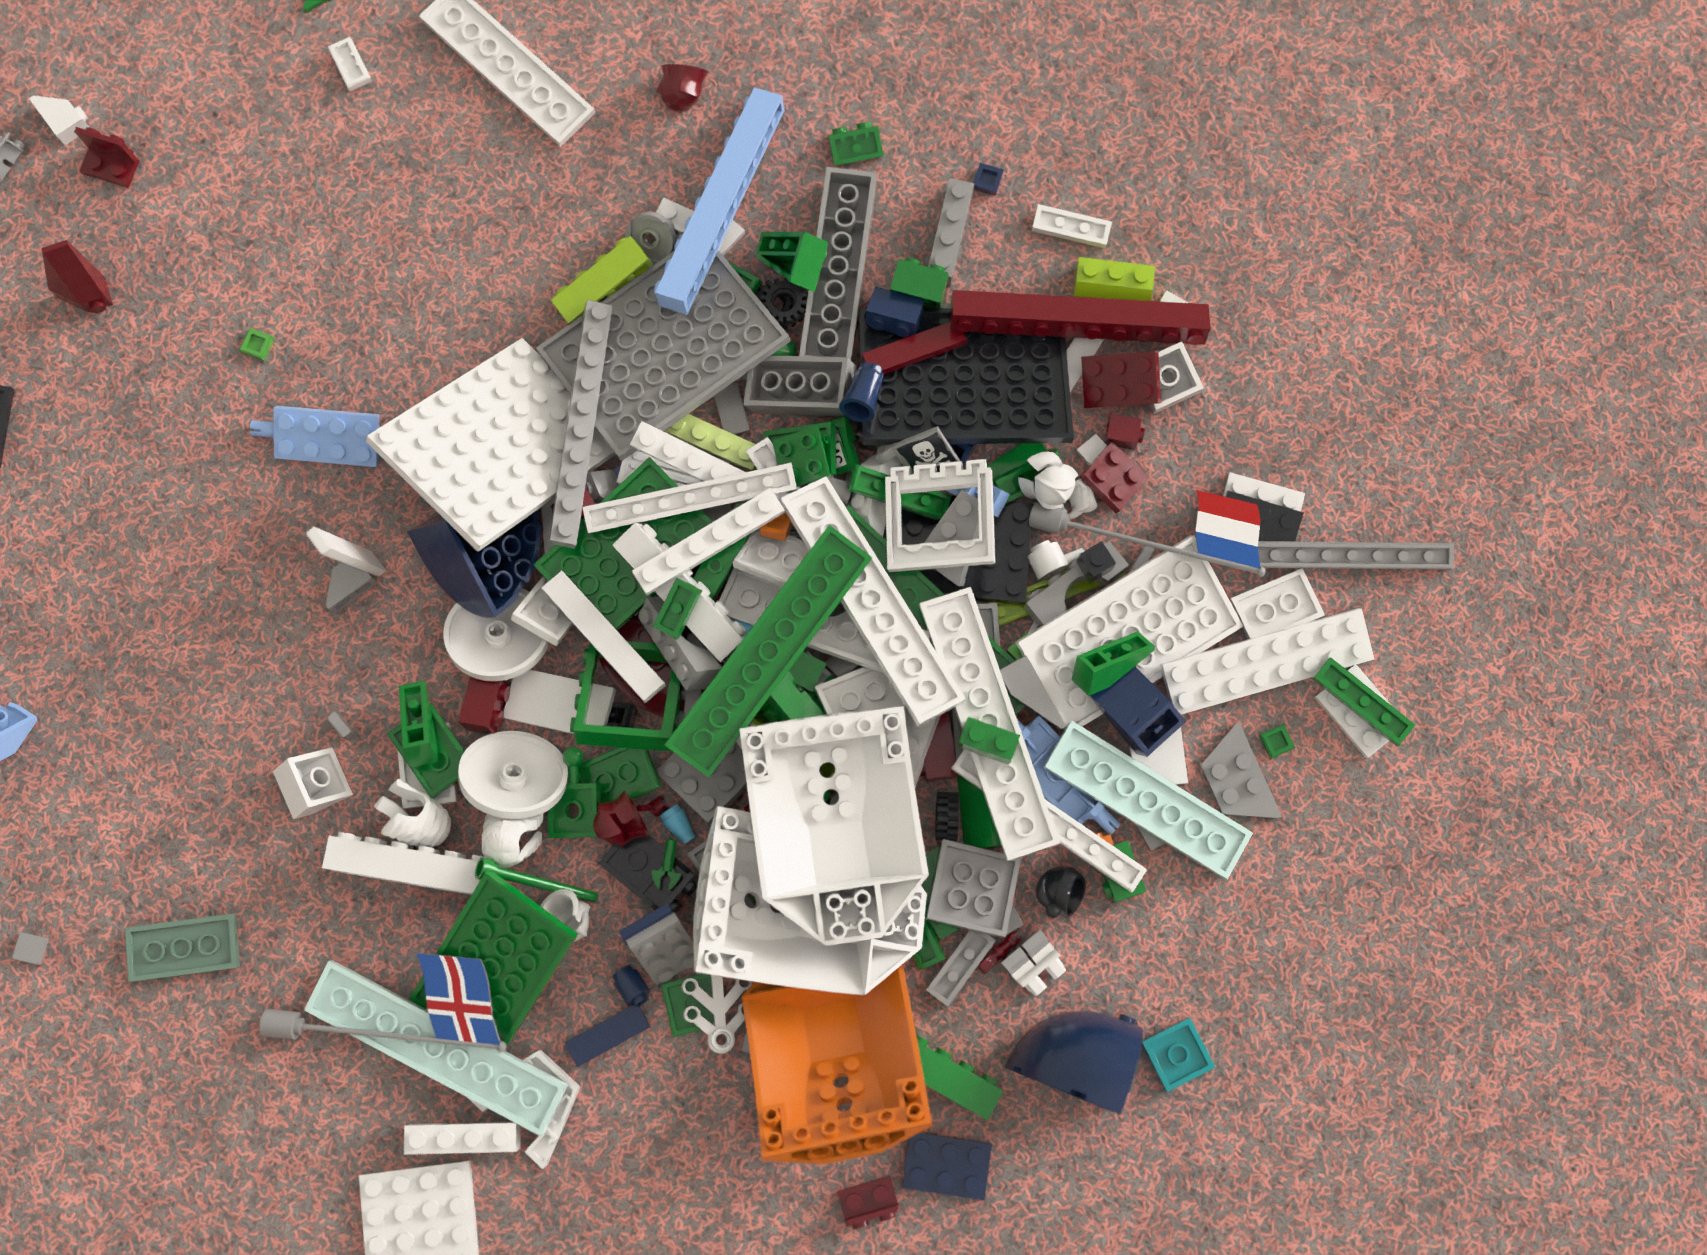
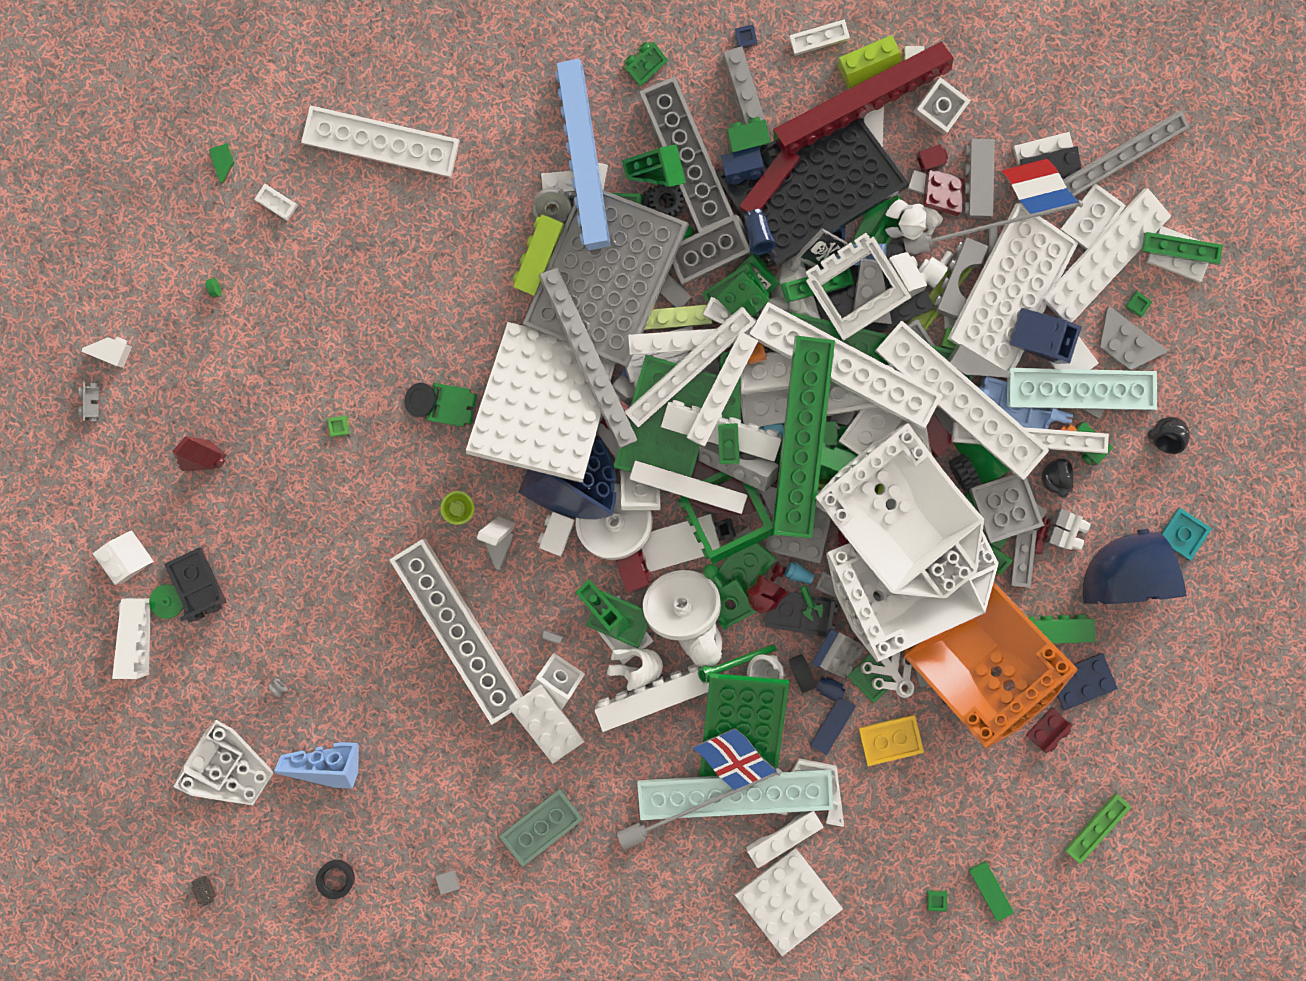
camera: 25 degrees left, 10 degrees up
(107, 157) = (159, 361): dark red bracket -> none
(220, 114) = (213, 287): none -> green tile
(236, 654) = (457, 630): none -> white brick
(266, 823) = (546, 723): none -> white plate
(320, 435) = (423, 460): light blue plate -> none
(327, 509) = (457, 508): none -> lime helmet
(367, 367) = (420, 399): none -> black piece
(397, 392) = (453, 405): none -> green plate
(422, 608) = (556, 533): none -> white brick
(606, 945) = (802, 673): none -> black tyre
(666, 1095) = (891, 740): none -> yellow plate
(681, 85) = (507, 90): dark red helmet -> none
(988, 740) = (971, 413): green brick -> none
(1011, 542) = (908, 273): none -> white slope
(1095, 562) = (969, 257): black brick -> none
(1110, 662) = (1014, 318): green slope -> none
(1121, 379) = (913, 125): dark red plate -> none
(1166, 487) = (979, 179): none -> light grey brick
(1226, 920) = (1170, 435): none -> black piece

